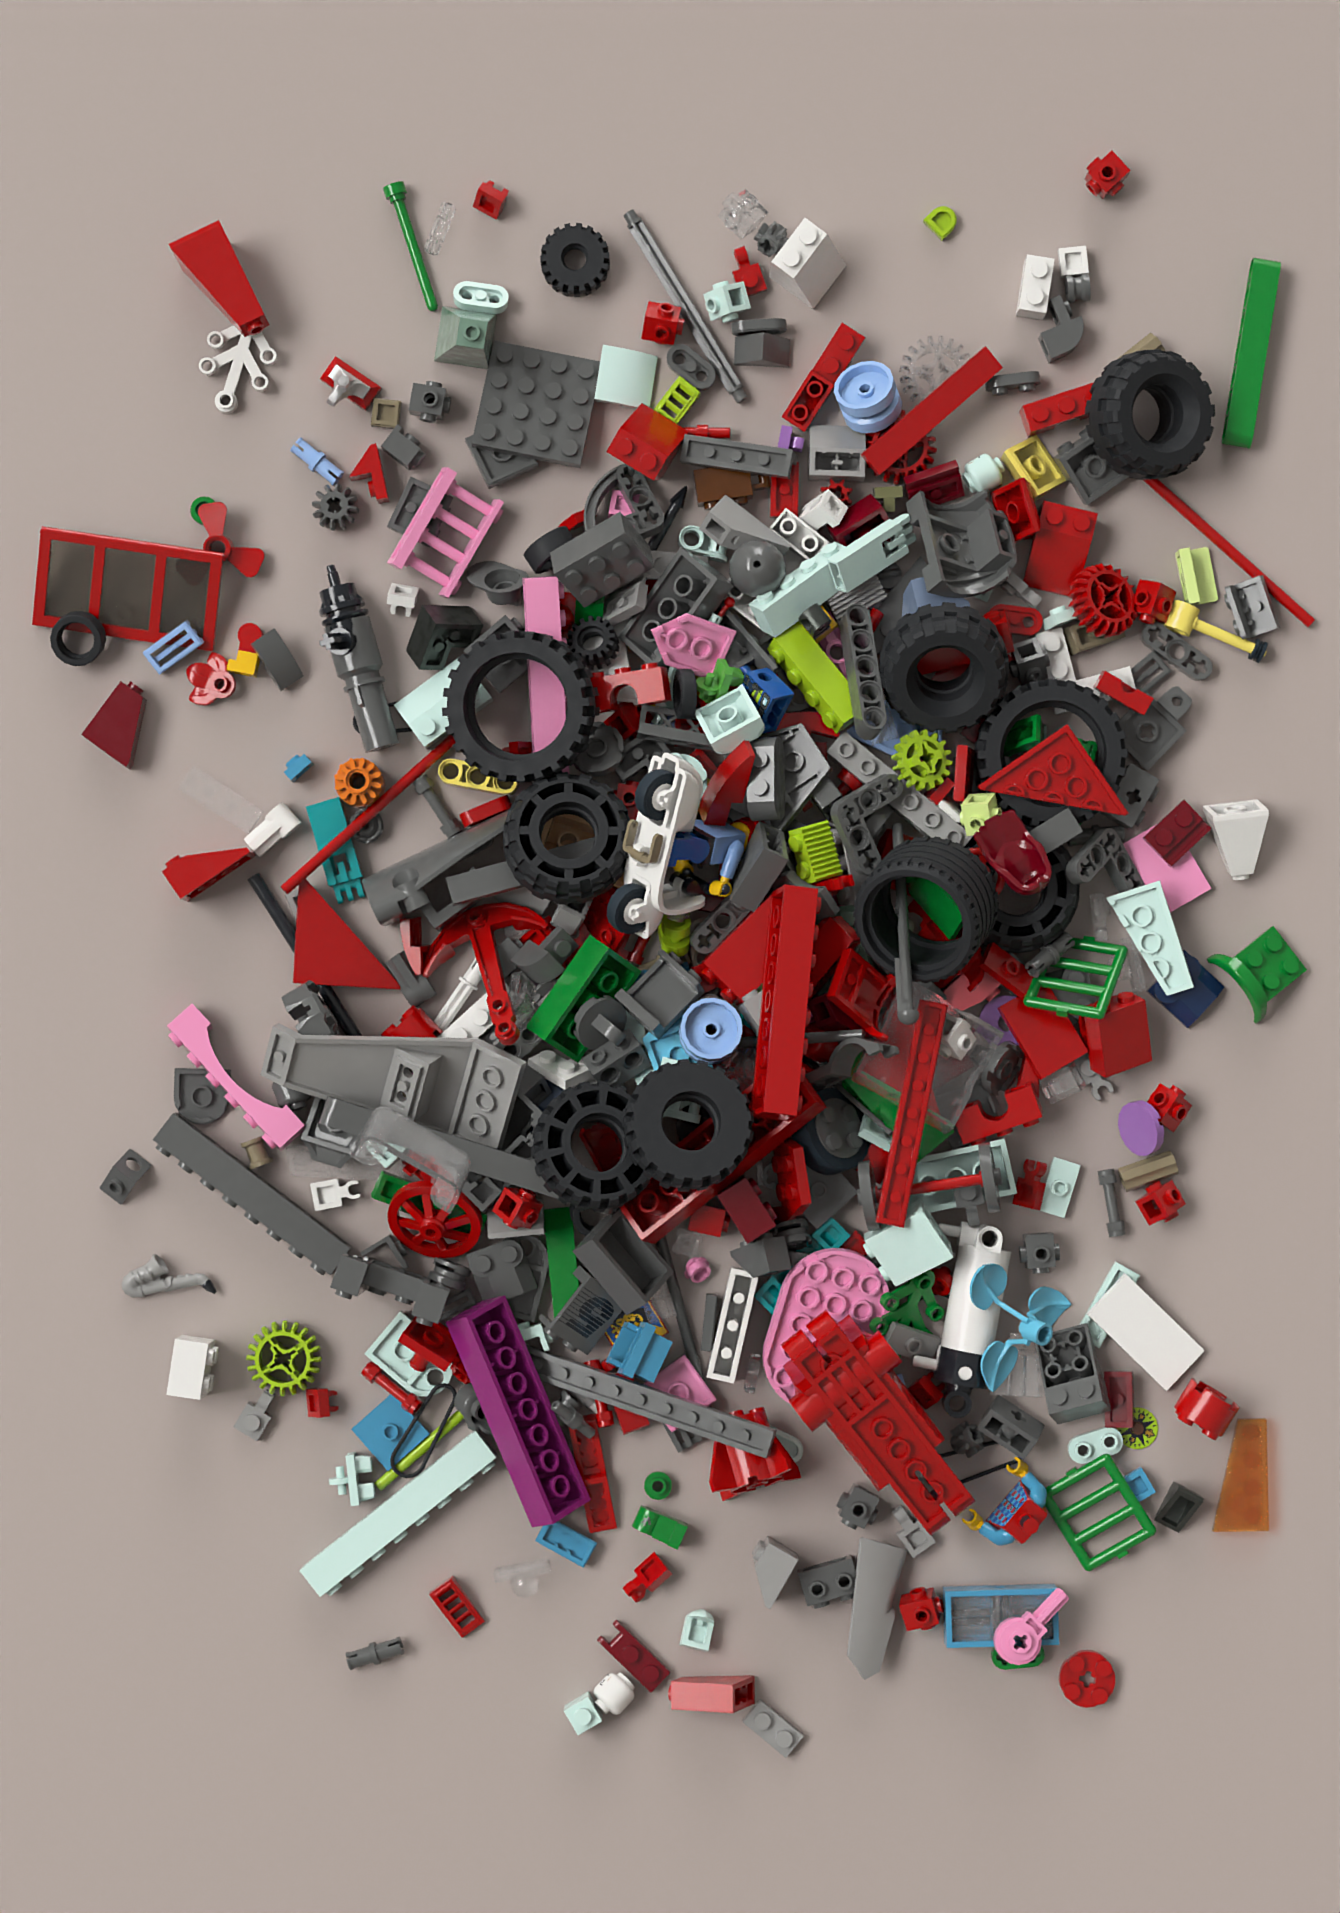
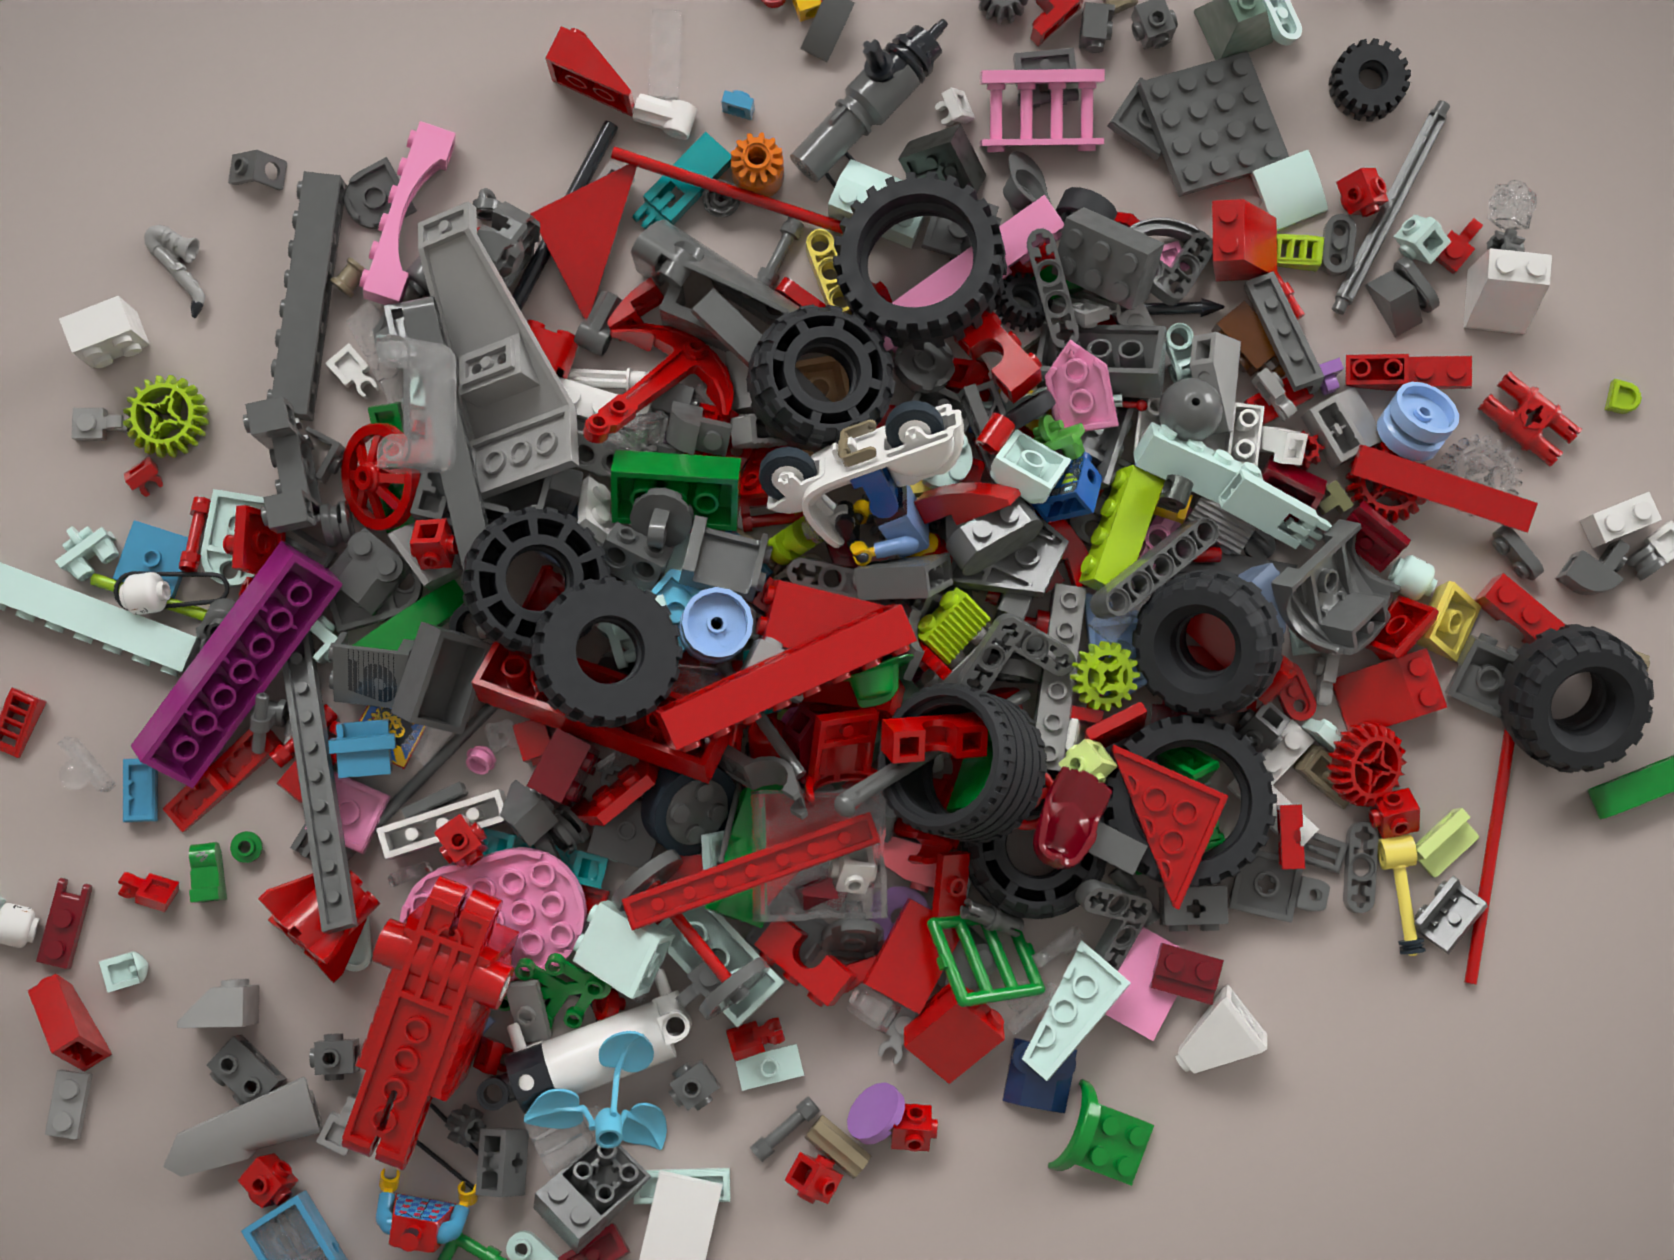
camera: 55 degrees right, 5 degrees down
(264, 1014) = (484, 205): none -> dark grey tile
(419, 1451) = (144, 593): none -> white head
(601, 614) = (1048, 290): none -> dark grey beam
(690, 730) = (995, 433): none -> red piece
(749, 1324) = (452, 838): none -> red brick
(774, 493) = (1271, 389): none -> light grey plate
(831, 936) = (878, 683): none -> green piece
(885, 937) = (910, 737): none -> red arch
(920, 291) = (1514, 421): none -> red pin
(953, 1074) = (816, 892): none -> dark red slope

